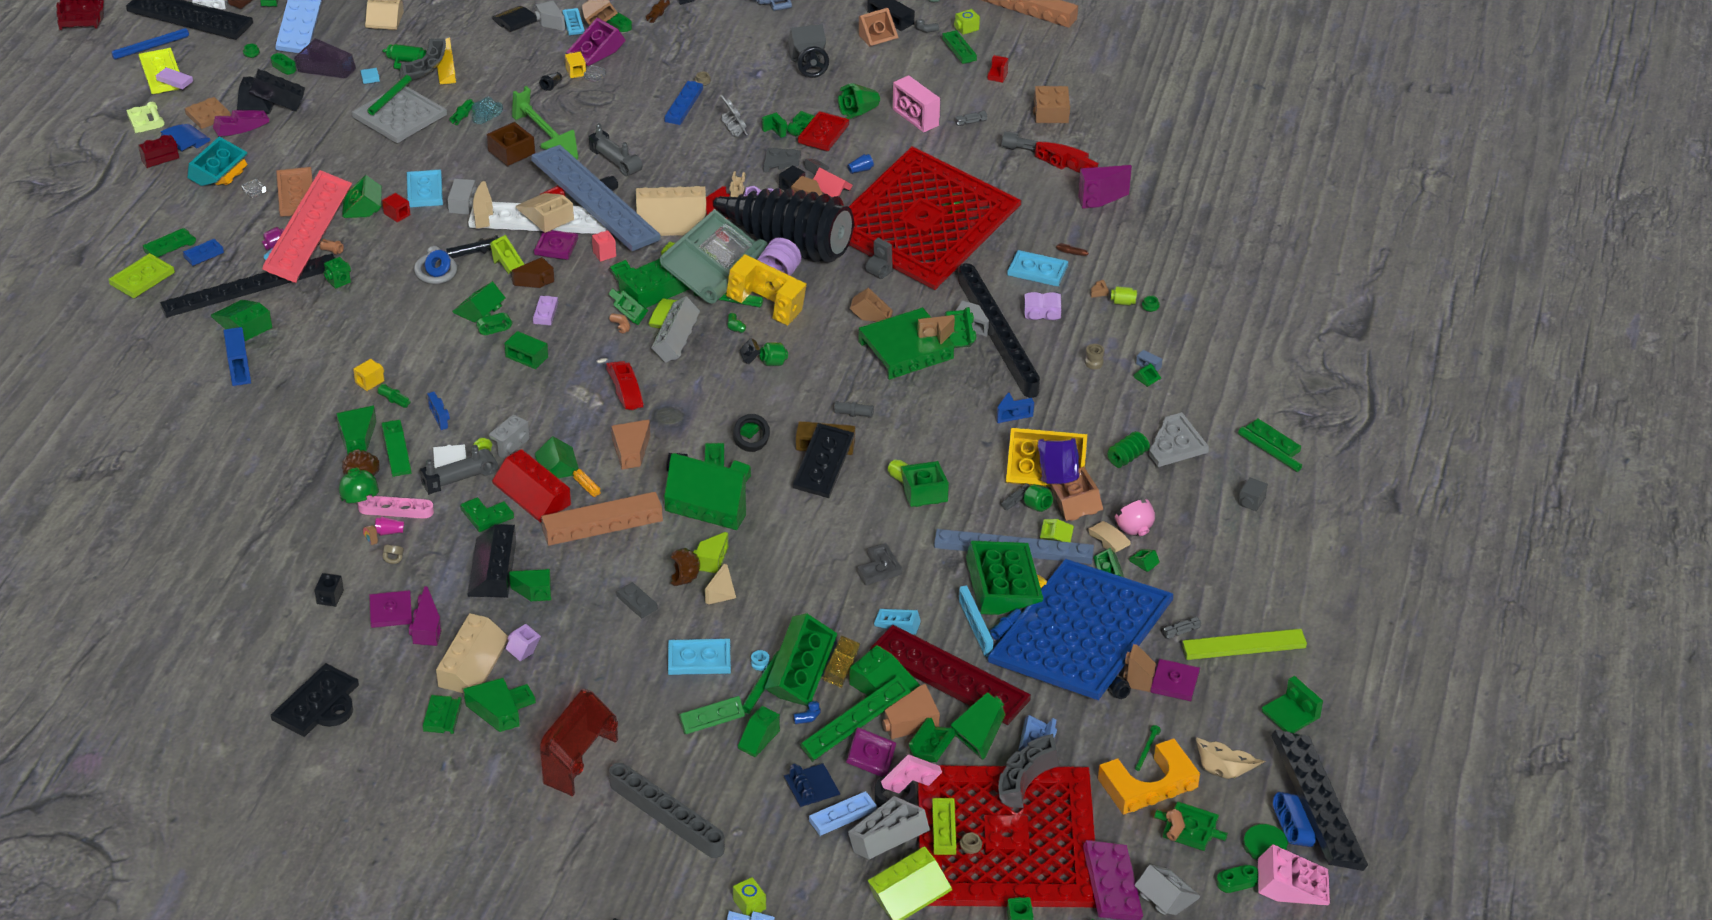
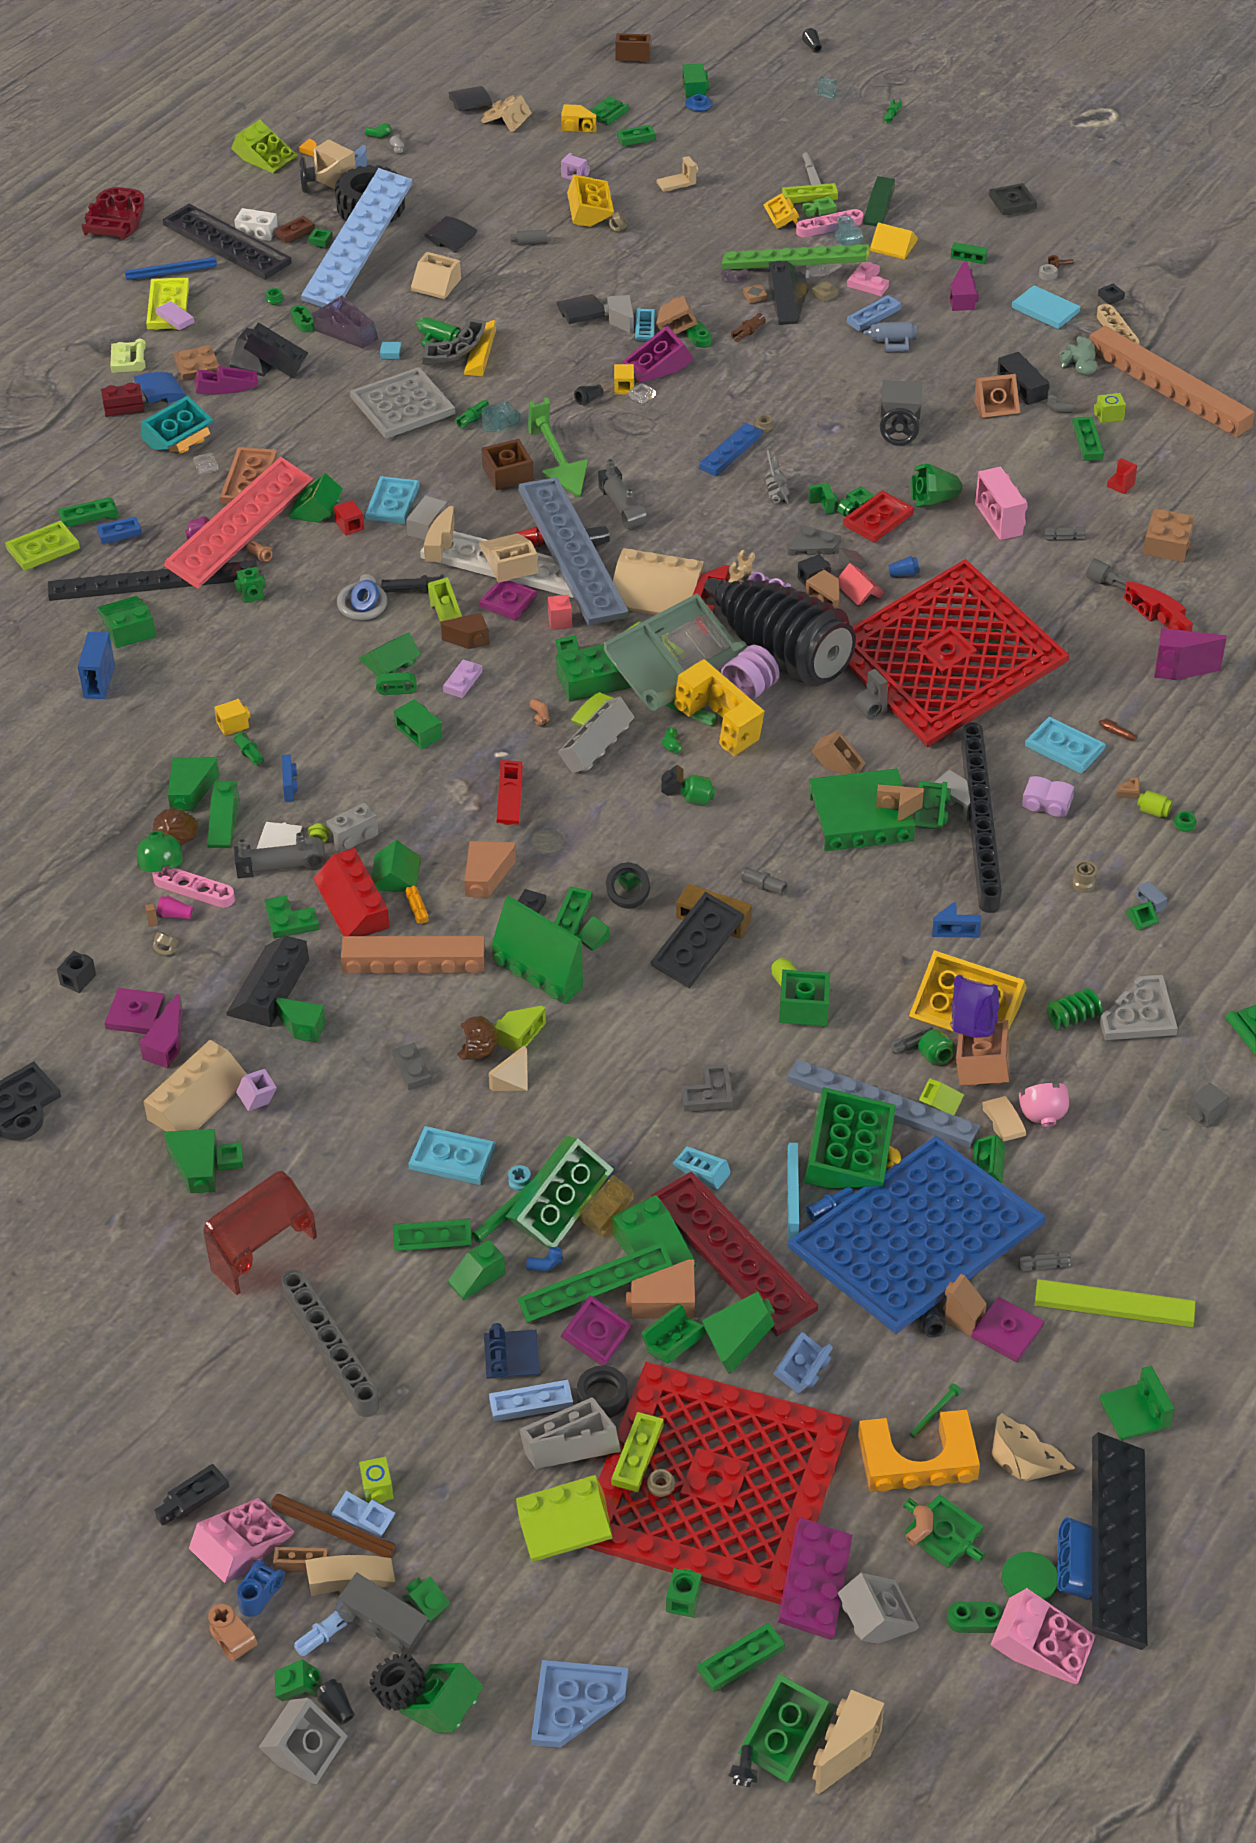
camera: 20 degrees right, 5 degrees up
(389, 95) = (398, 378): green piece -> none
(442, 714) = (135, 1155): green plate -> none
(628, 306) = (556, 693): green hinge -> none
(911, 769) = (623, 1369): bright pink plate -> none
(1025, 767) = (764, 1401): dark grey brick -> none
(1145, 559) = (1037, 1159): green slope -> none

